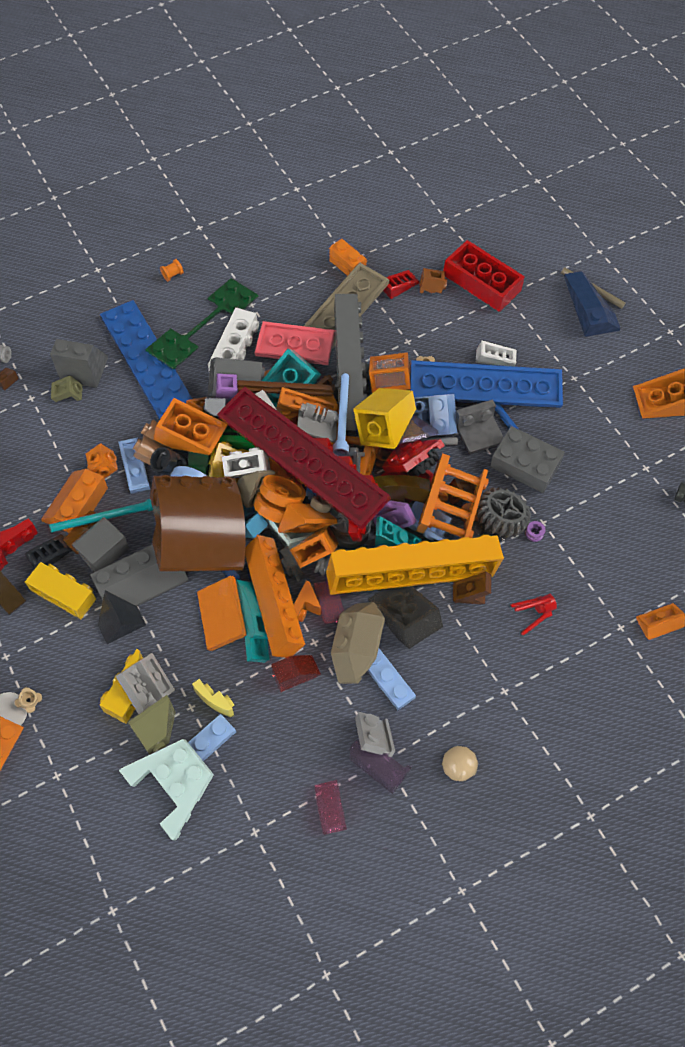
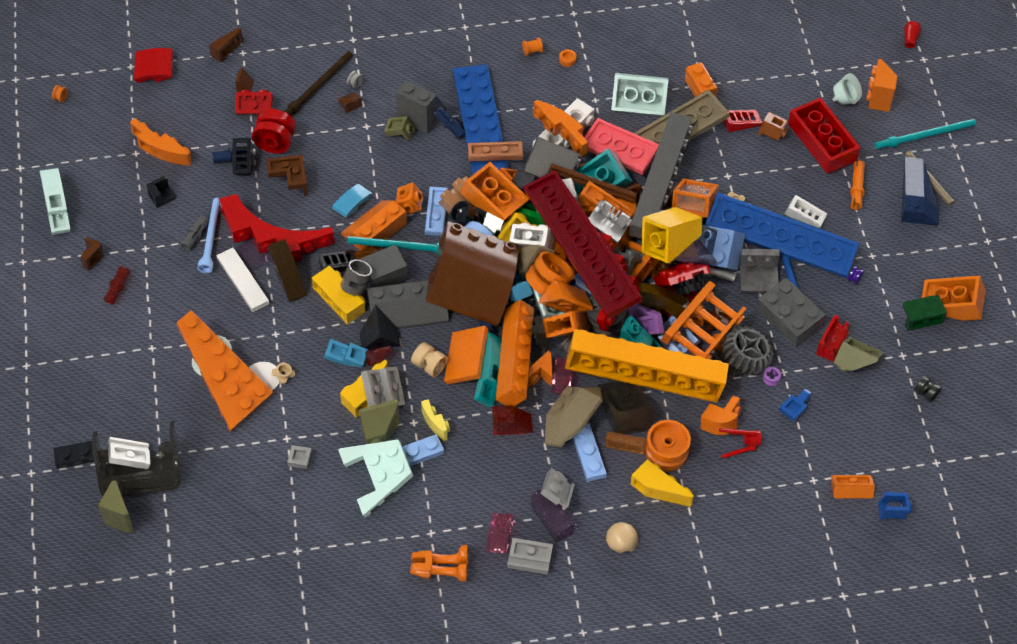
camera: 20 degrees right, 5 degrees down
(40, 481) = (350, 200): none -> dark azure slope
(74, 567) = (356, 277): none -> dark grey wheel
(78, 795) = (299, 457): none -> light grey plate
(91, 654) = (348, 355): none -> dark azure slope
(115, 369) = (449, 122): none -> dark blue axle
(125, 645) = (377, 355): none -> clear red slope
(173, 385) = (495, 151): none -> nougat tile
(175, 348) = (509, 118): dark green hinge -> none
(183, 631) = (429, 359): none -> tan wheel
(210, 271) = (567, 58): none -> orange tile
(226, 385) = (540, 164): medium lavender slope -> none
(229, 336) = (560, 122): none -> orange slope
(266, 867) = (424, 562): none -> orange piece
(293, 286) = (639, 94): none -> light aqua slope
(320, 505) = (582, 290): dark tan tile -> none
(340, 446) = (620, 246): light blue piece -> none
(373, 822) = (530, 556): none -> light grey plate
(422, 654) = (625, 443): none -> clear orange tile
(467, 643) = (668, 445): none -> orange wheel
(472, 589) = (692, 405): reddish brown slope -> none
(473, 689) = (656, 484): none -> yellow slope
(484, 228) = (847, 90): none -> light aqua piece
(508, 596) = (717, 417): none -> orange brick
(516, 214) = (881, 87): none -> orange slope
(518, 159) = (911, 31): none -> red cone
(535, 320) = (857, 190): none -> orange pin
(546, 262) = (893, 141): none -> teal bar
(570, 402) = (855, 275): none -> dark purple bush
(571, 555) = (795, 407): none -> blue plate
(576, 473) = (832, 339): none -> red hinge
(608, 483) = (855, 355): none -> olive slope
(650, 418) = (924, 312): none -> dark green panel

